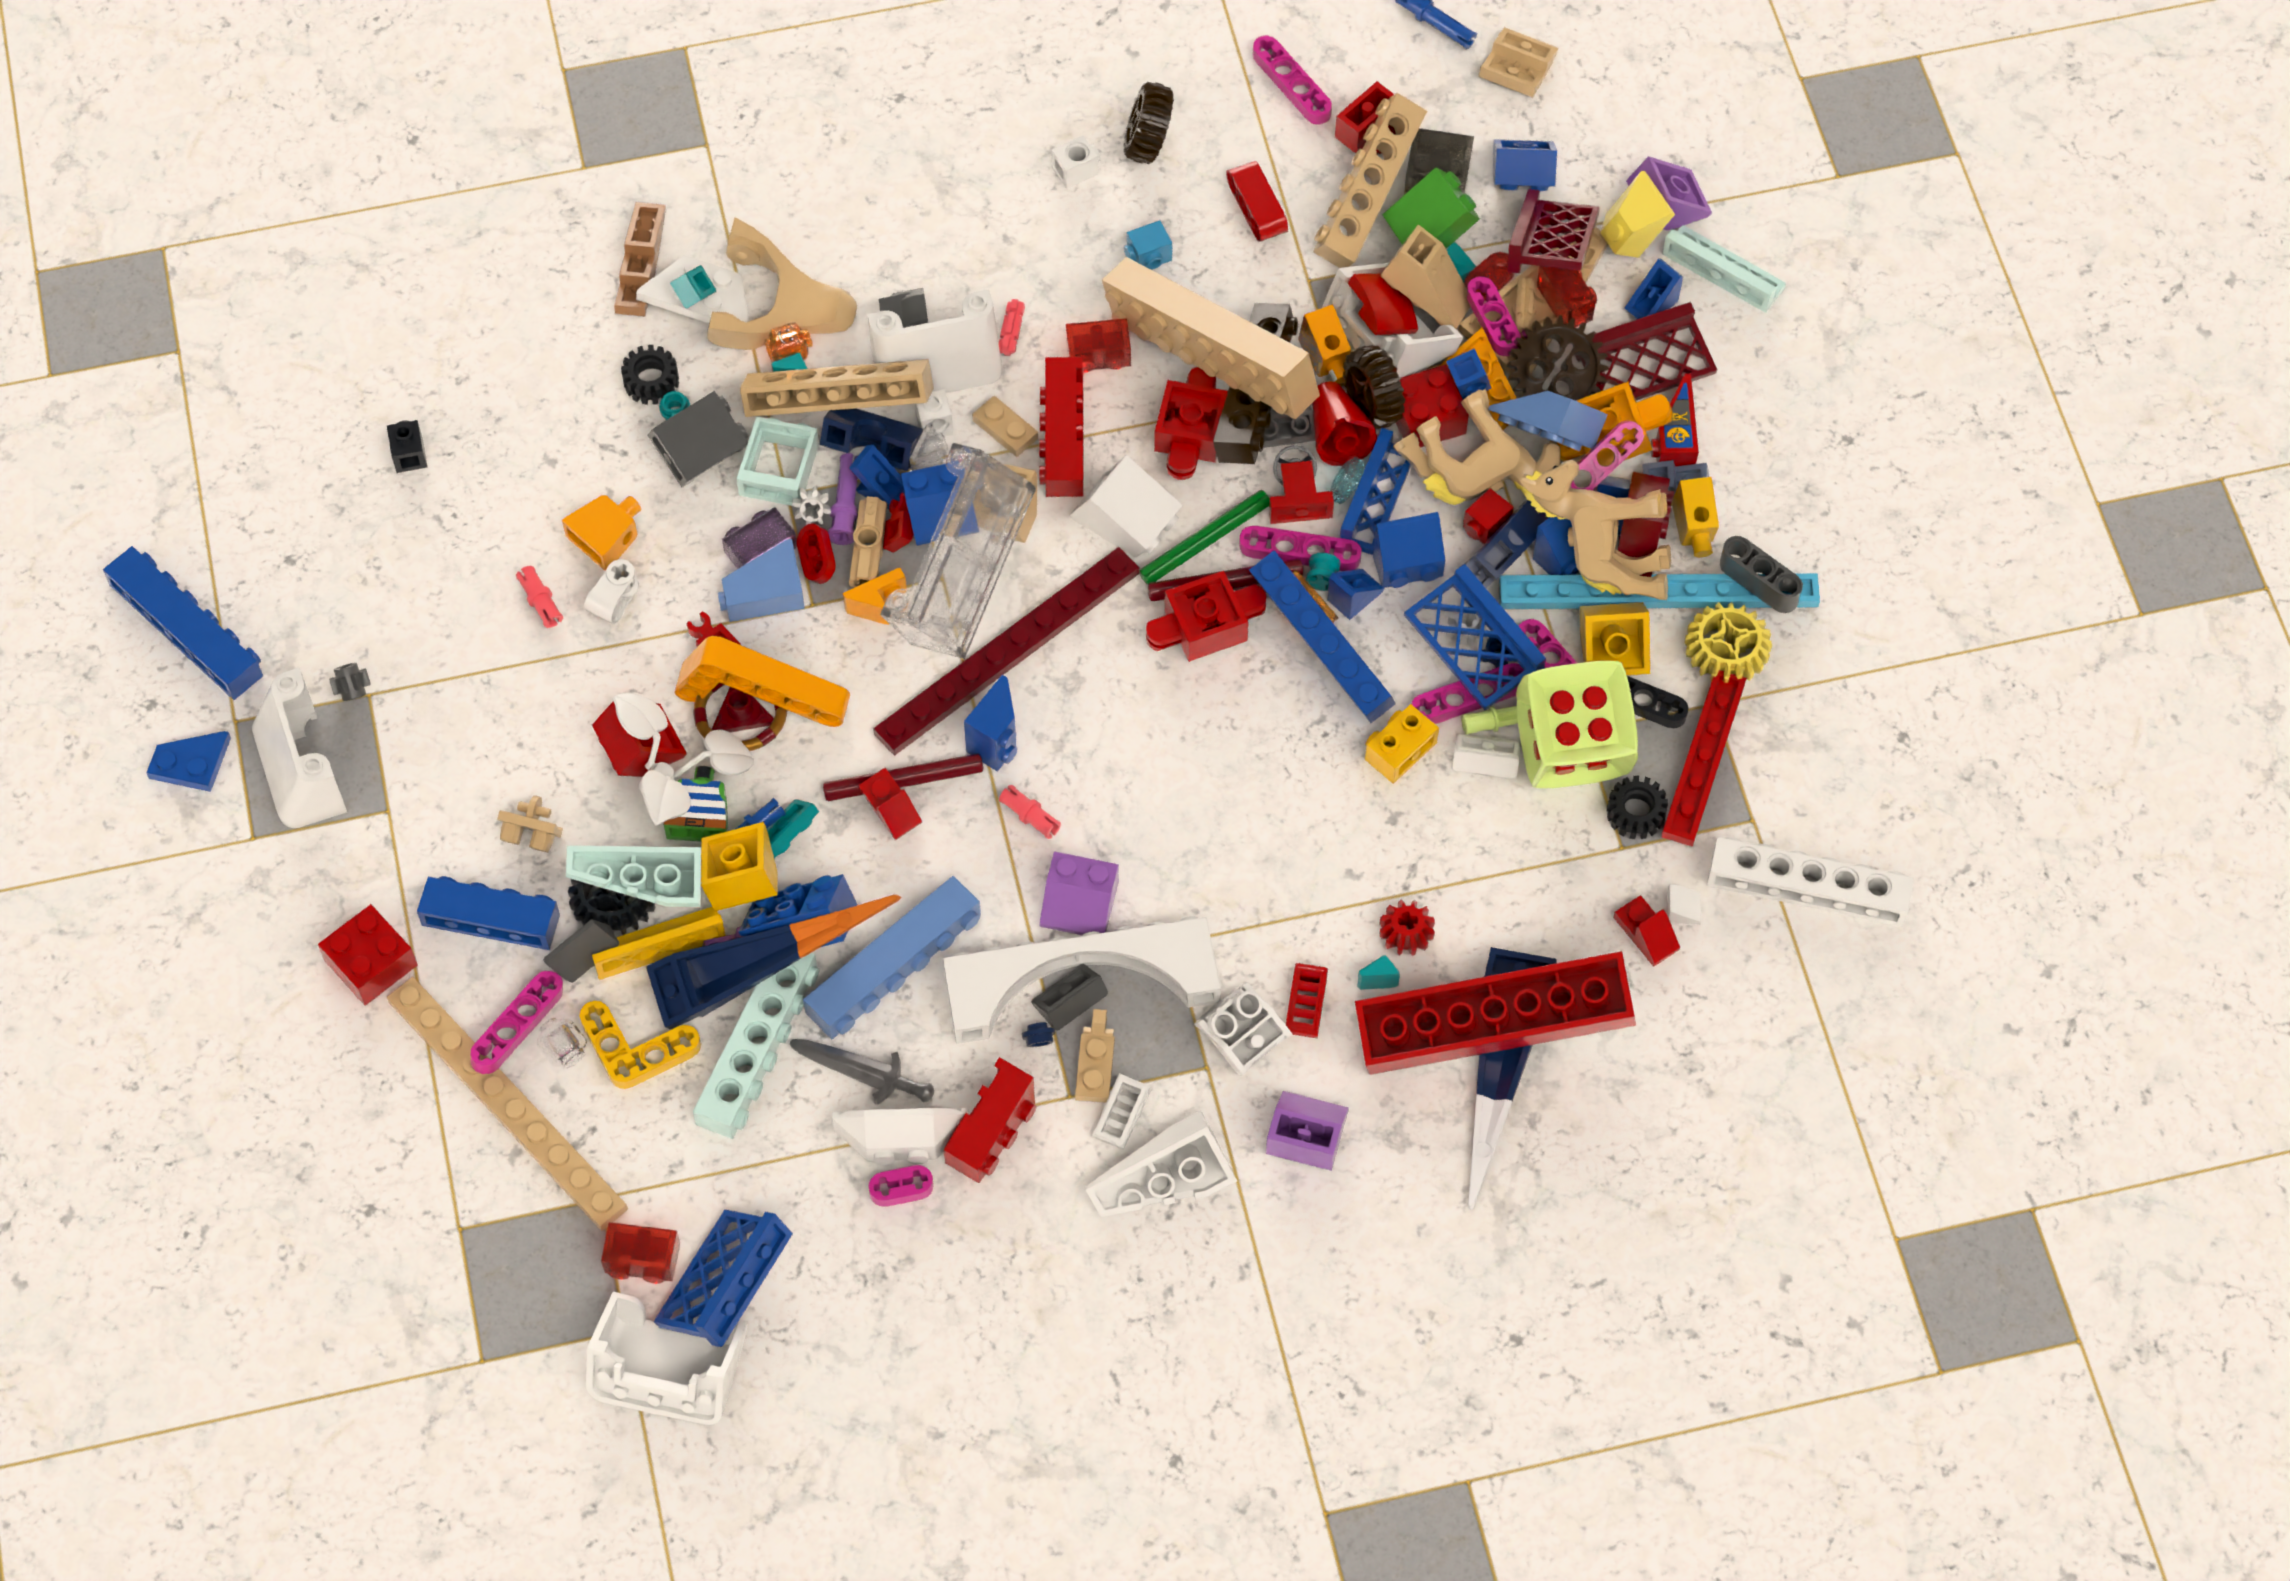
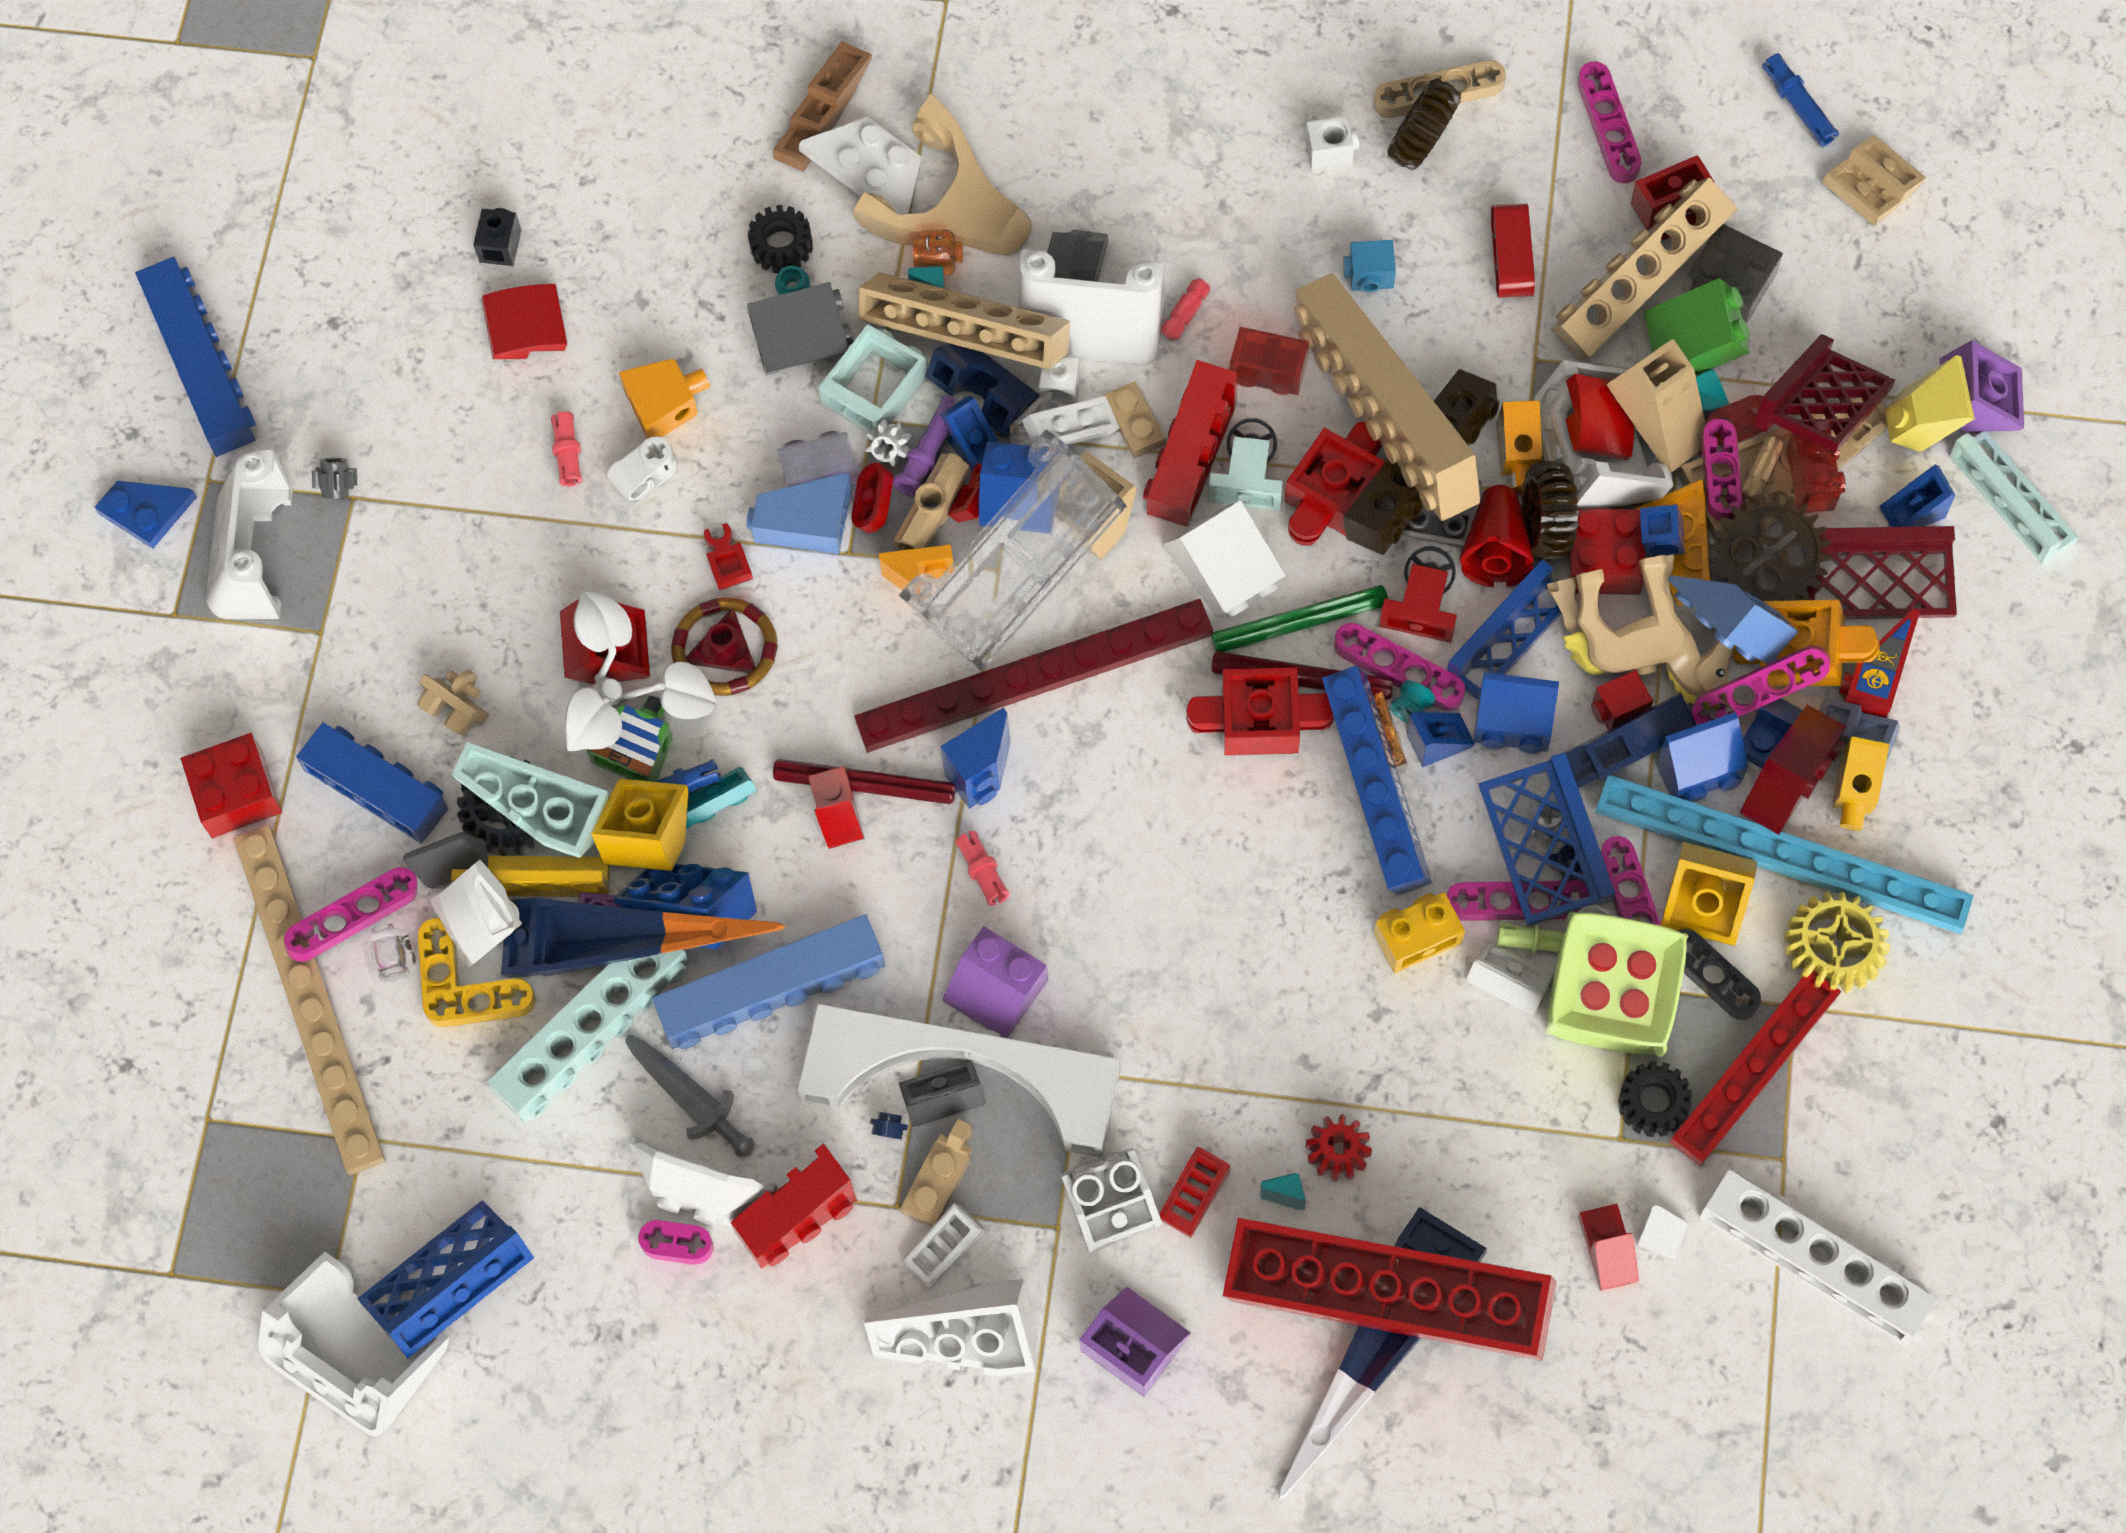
camera: 25 degrees right, 5 degrees up
(458, 506) = (524, 321): none -> red slope
(627, 982) = (476, 912): none -> white slope
(640, 1252) = (372, 1218): clear red brick -> none
(693, 286) = (859, 156): teal slope -> none
(761, 677) = (755, 624): light orange beam -> none
(970, 432) = (1074, 421): none -> white plate
(1116, 435) = (1248, 471): none -> light aqua piece
(1163, 76) = (1463, 73): none -> tan beam
(1347, 480) = (1480, 606): clear light blue gear -> none
(1524, 164) = (1831, 301): blue slope -> none
(1595, 531) = (1728, 764): tan animal -> none
(1754, 561) = (1904, 893): dark grey beam -> none

